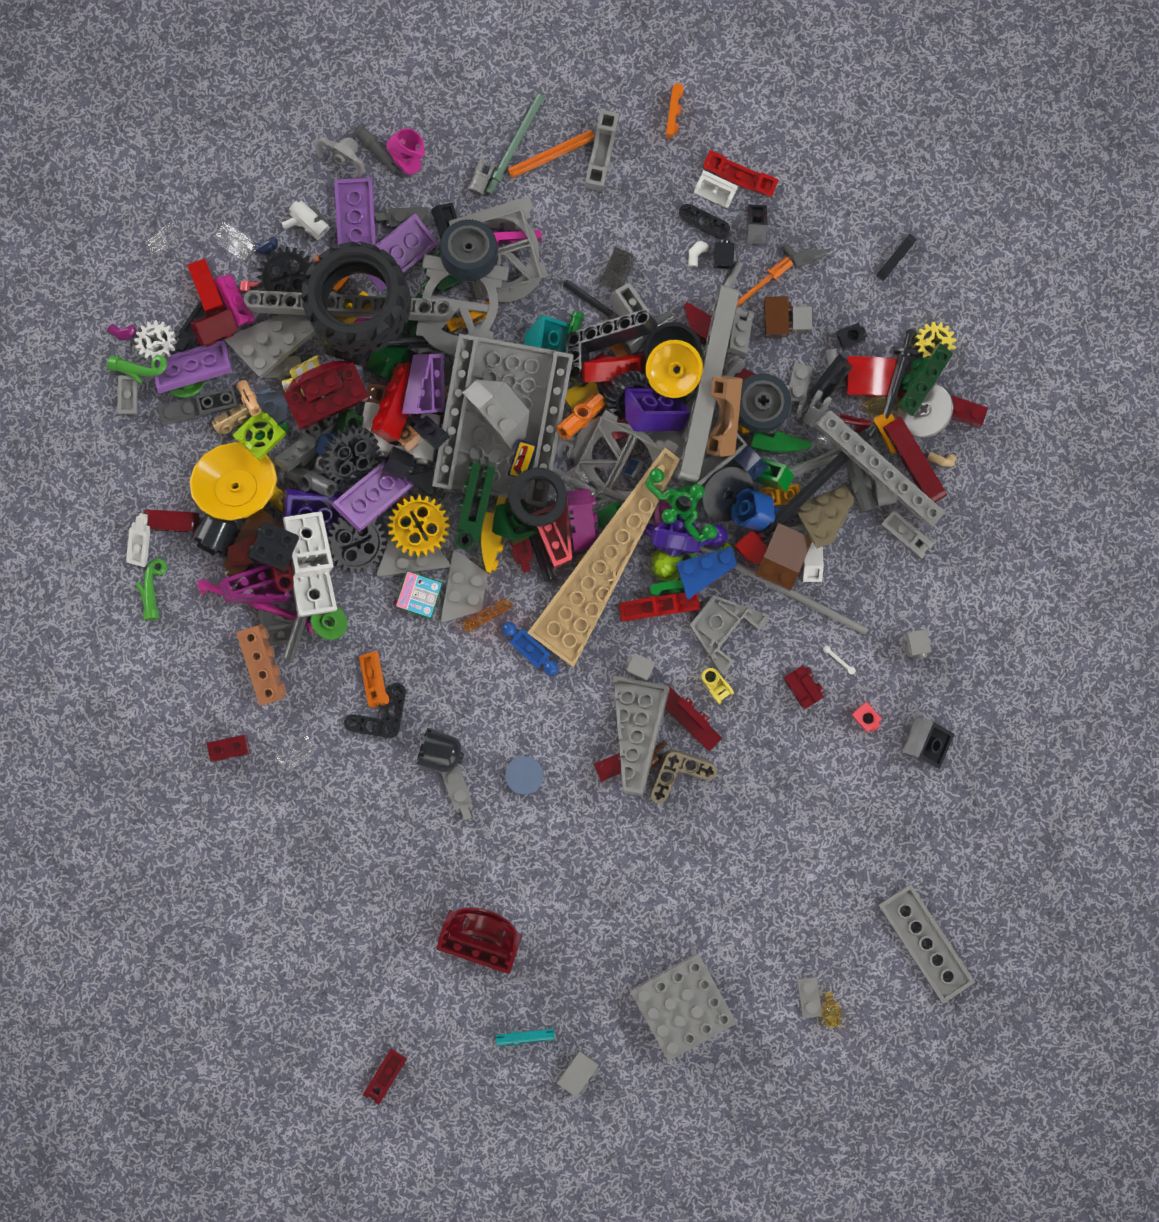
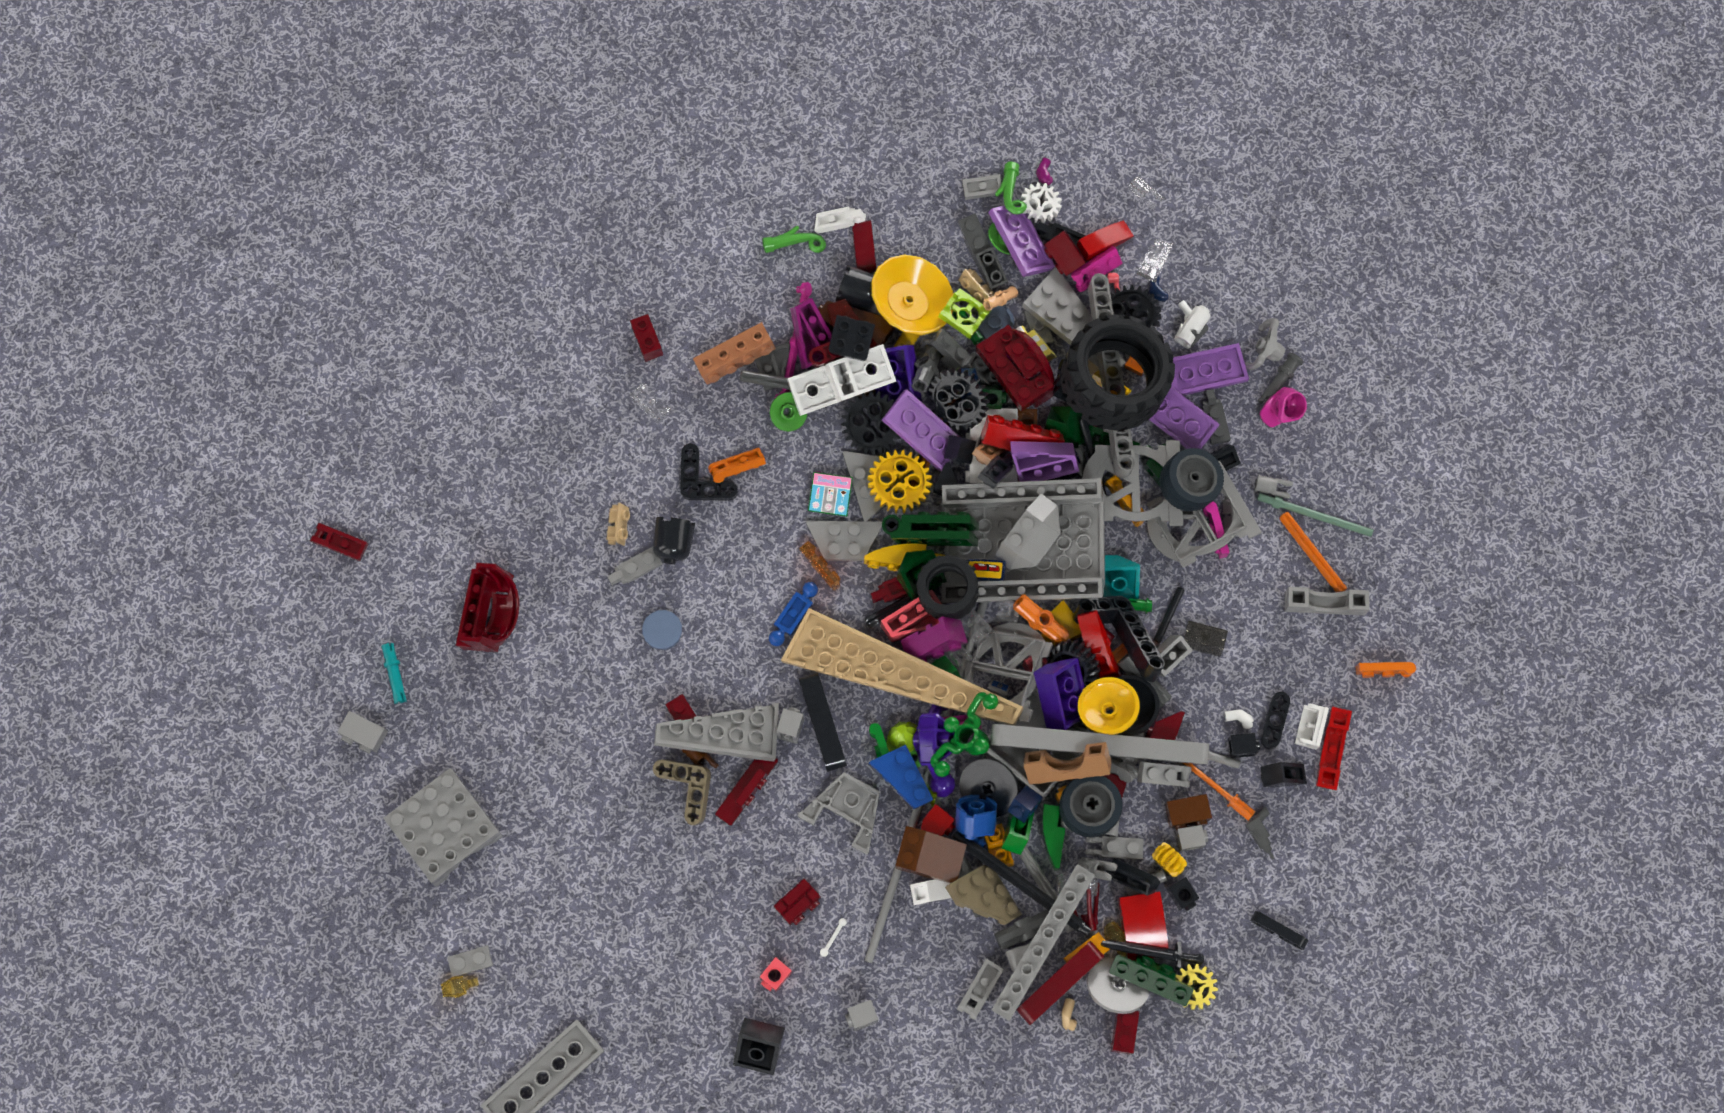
camera: 85 degrees right, 10 degrees down
(405, 799) = (619, 515): none -> tan hinge
(638, 637) = (822, 722): none -> black beam
(658, 606) = (858, 737): red slope -> none
(717, 686) = (784, 811): light yellow piece -> none
(819, 342) = (1169, 859): none -> yellow gear

